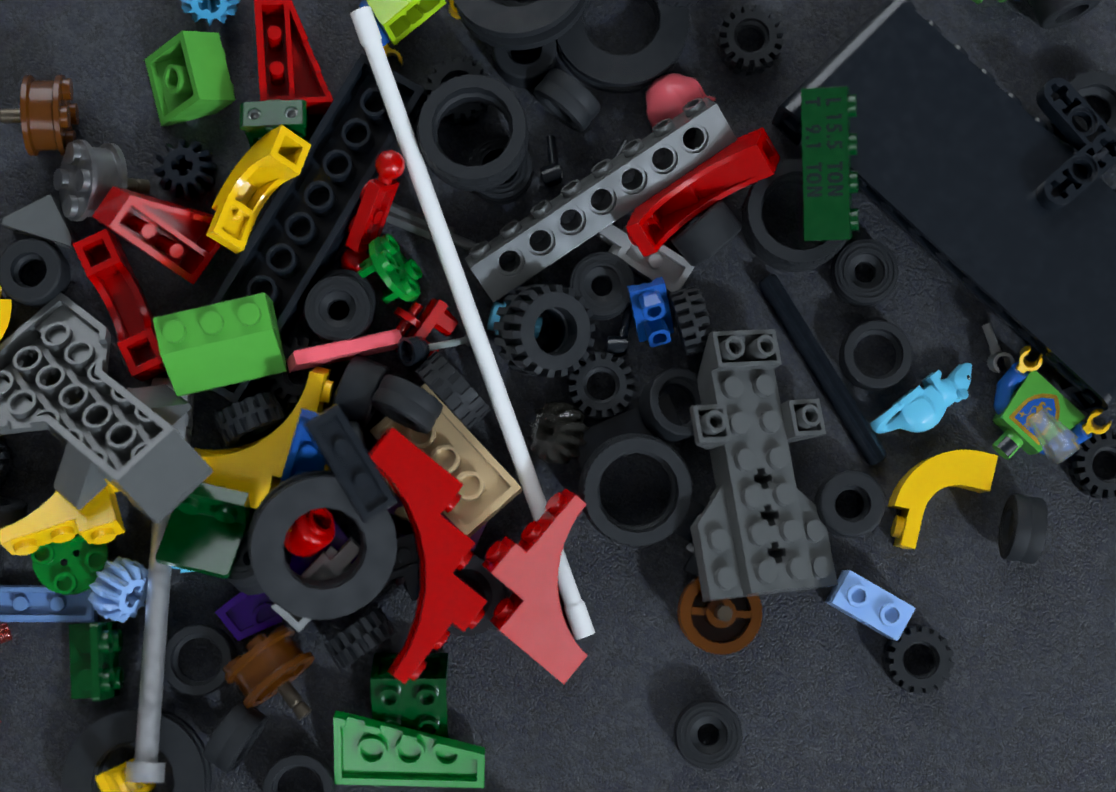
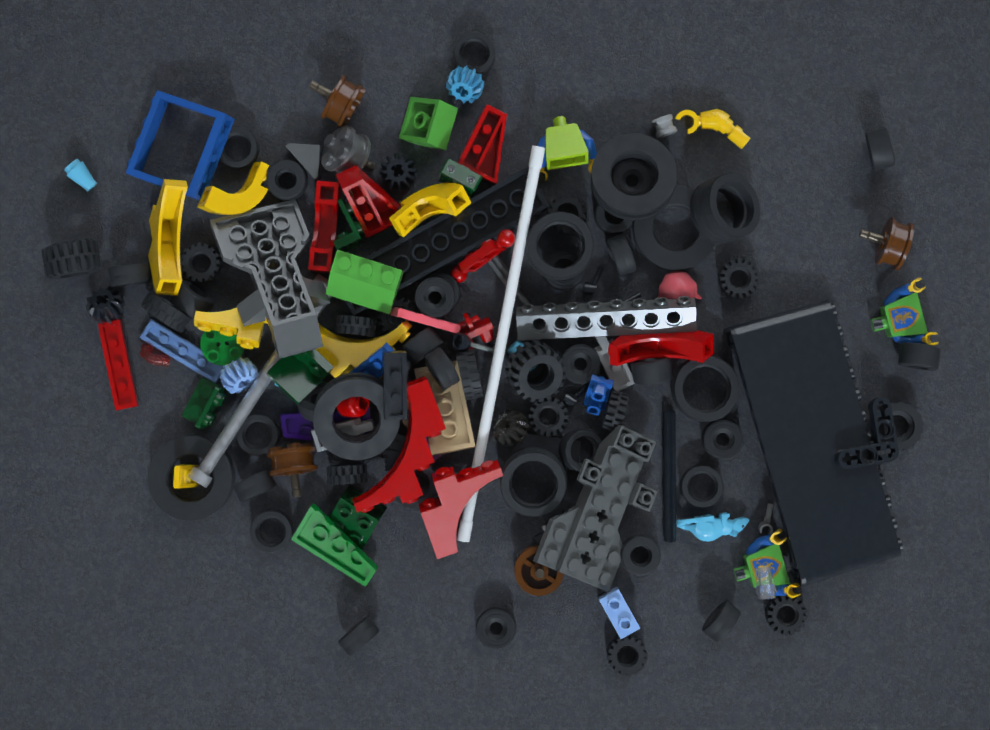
camera: 30 degrees right, 5 degrees up
(172, 295) = (346, 240): none -> dark green bracket
(393, 268) = (476, 291): green plate -> none
(827, 163) = (733, 374): dark green brick -> none
(956, 468) = (690, 565): yellow arch -> none

